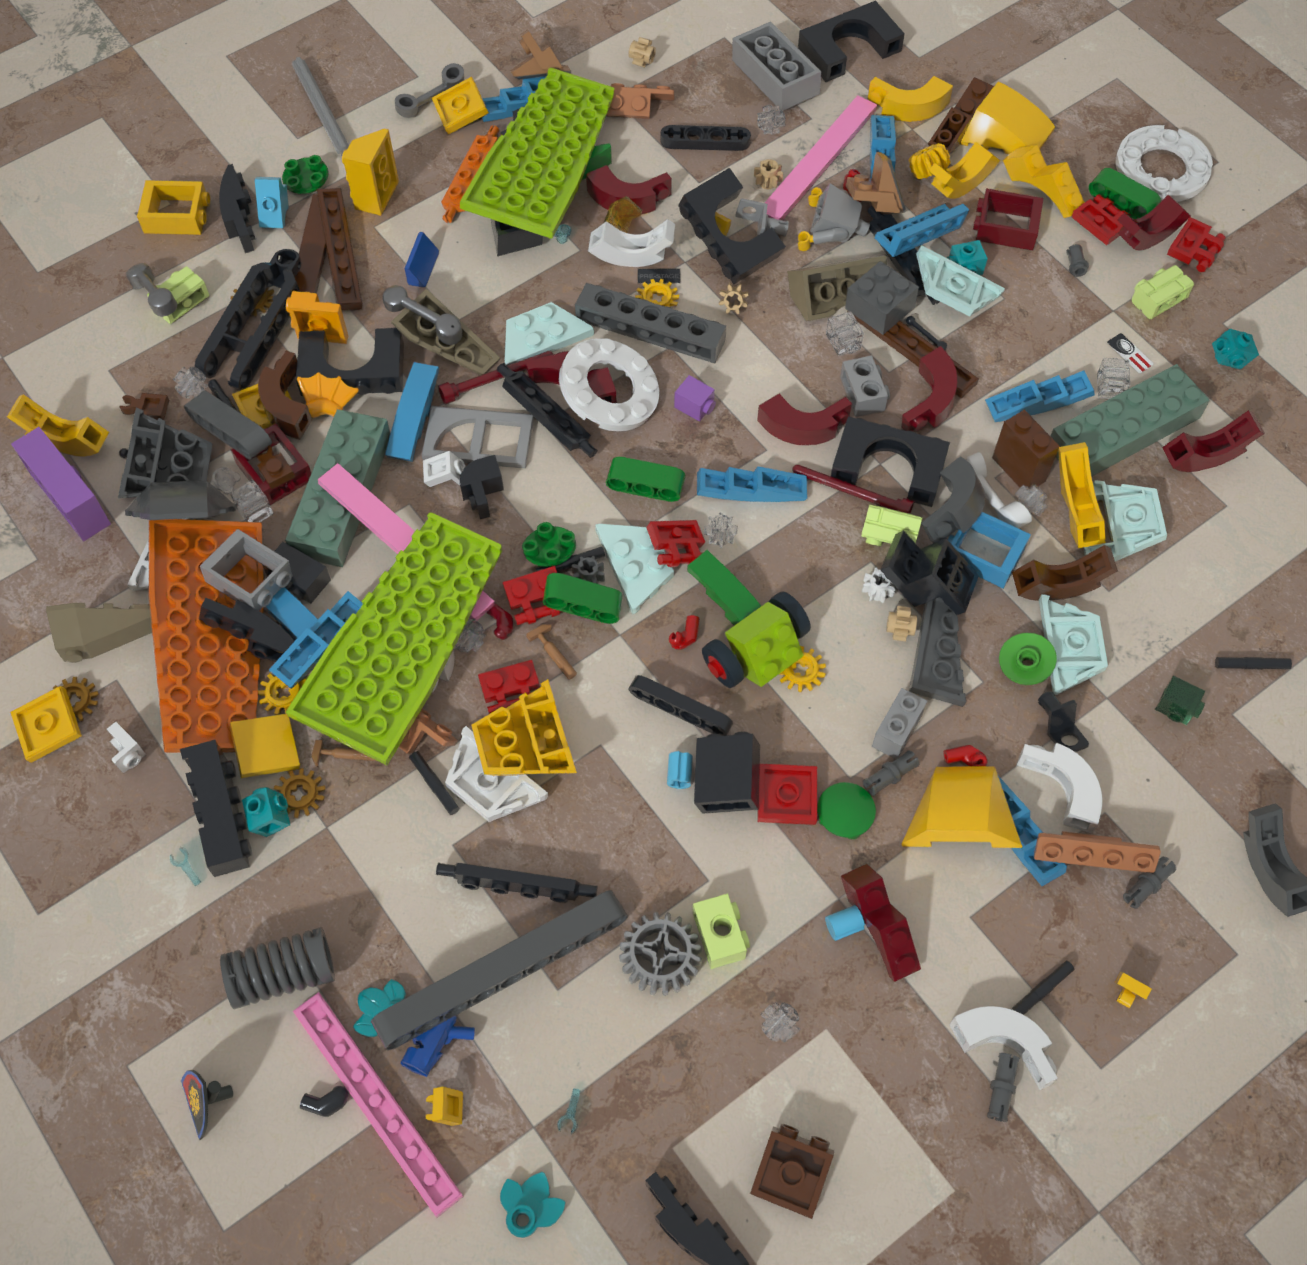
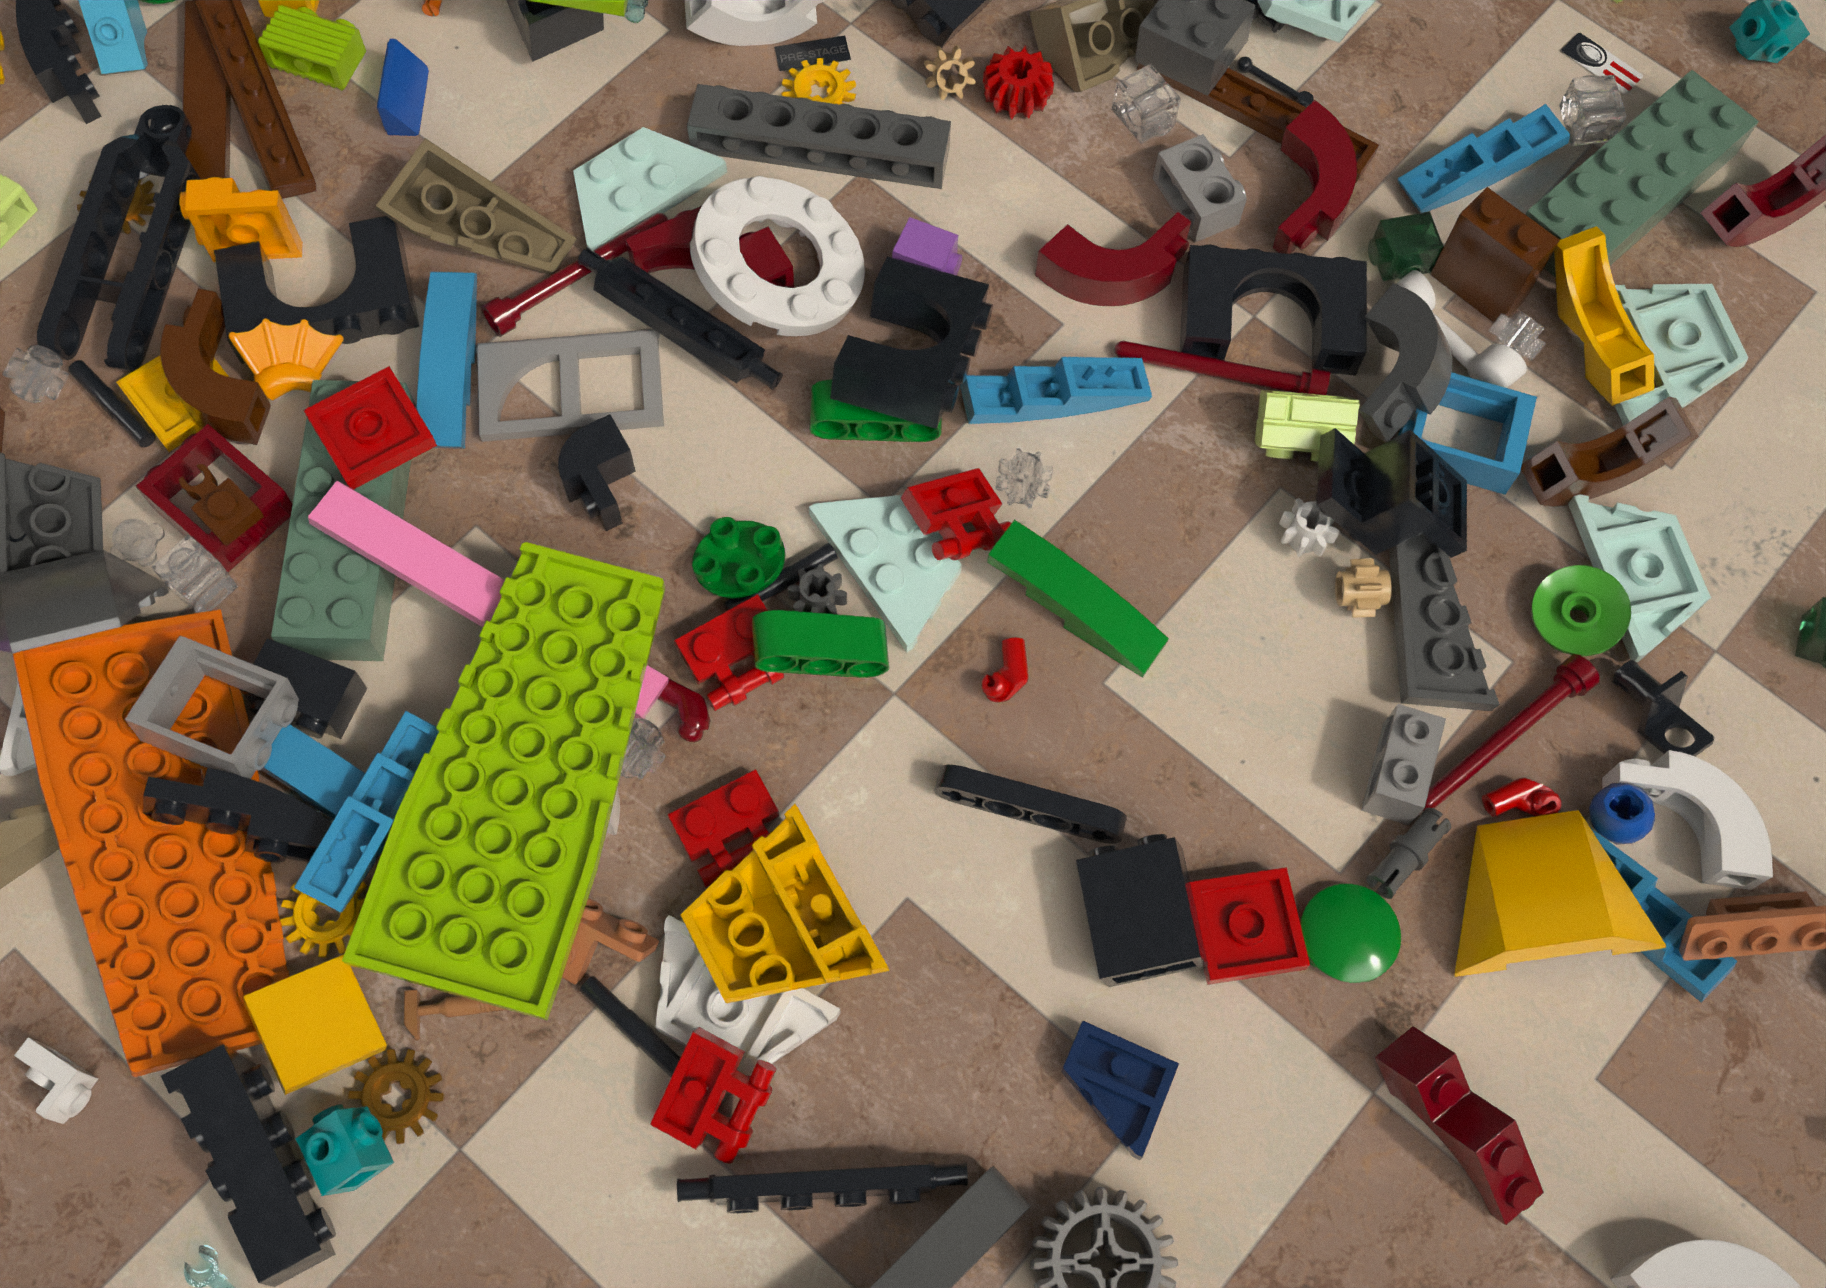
camera: 15 degrees left, 5 degrees up
(227, 424) = (121, 442): dark grey beam -> none
(361, 438) = (370, 428): none -> red plate
(377, 229) = (312, 46): none -> lime brick
(396, 299) = (475, 196): flat silver piece -> none
(442, 468) = (523, 453): white bracket -> none
(459, 819) = (698, 1088): none -> red plate
(552, 650) = (786, 745): medium nougat piece -> none
(673, 465) = (922, 381): none -> black arch
(679, 770) = (1056, 919): medium azure piece -> none
(694, 862) = (1120, 1083): none -> dark blue wing
(720, 949) = (1195, 1232): yellowish green brick -> none
(760, 643) = (1143, 671): lime brick -> none
(772, 310) = (1018, 82): none -> red gear
(811, 673) = (1215, 679): yellow gear -> none
(845, 922) = (1399, 1137): medium azure piece -> none
(977, 437) = (1405, 245): none -> clear green brick
(1013, 696) = (1573, 678): none -> dark red piece
(1021, 773) = (1622, 813): none -> blue piece
(1044, 988) = (1747, 1184): black piece -> none

